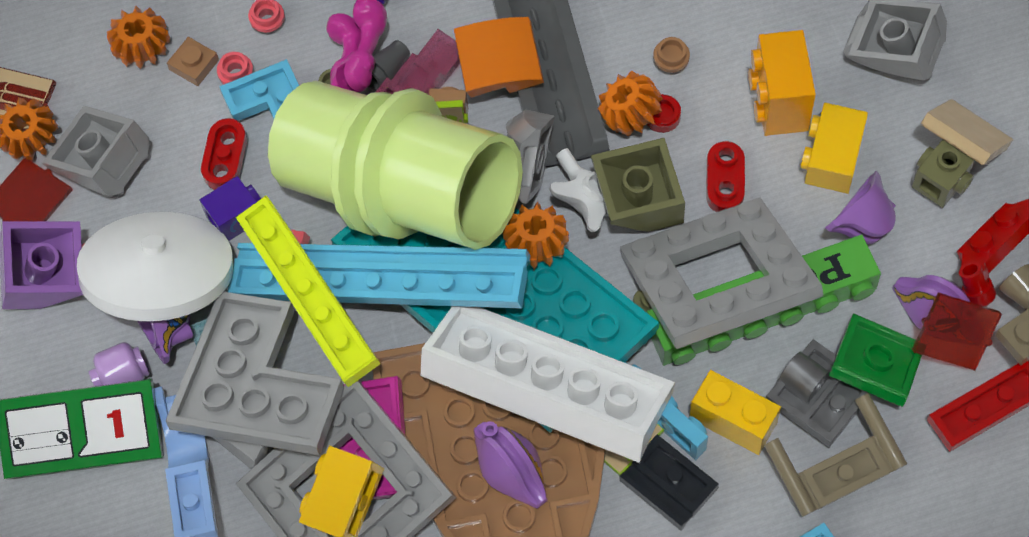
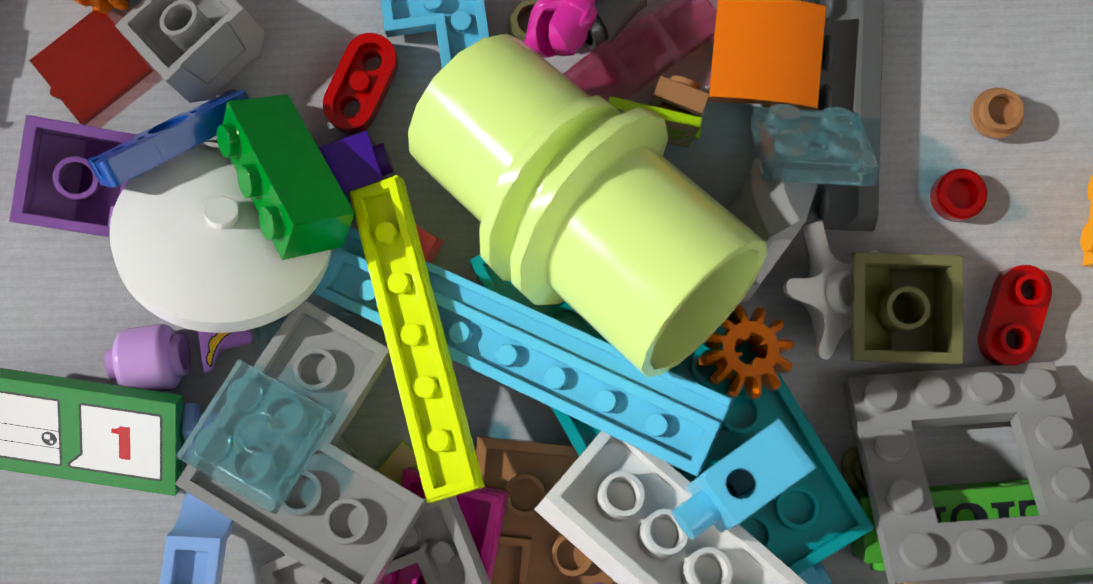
camera: 10 degrees right, 20 degrees up
(103, 215) = (162, 141): none -> blue piece
(190, 213) = (284, 176): none -> green brick
(215, 373) = (256, 436): none -> clear light blue plate
(542, 98) = (813, 146): none -> clear light blue plate
(552, 298) = (753, 471): none -> medium azure torso
(630, 103) = (943, 183): orange gear -> none

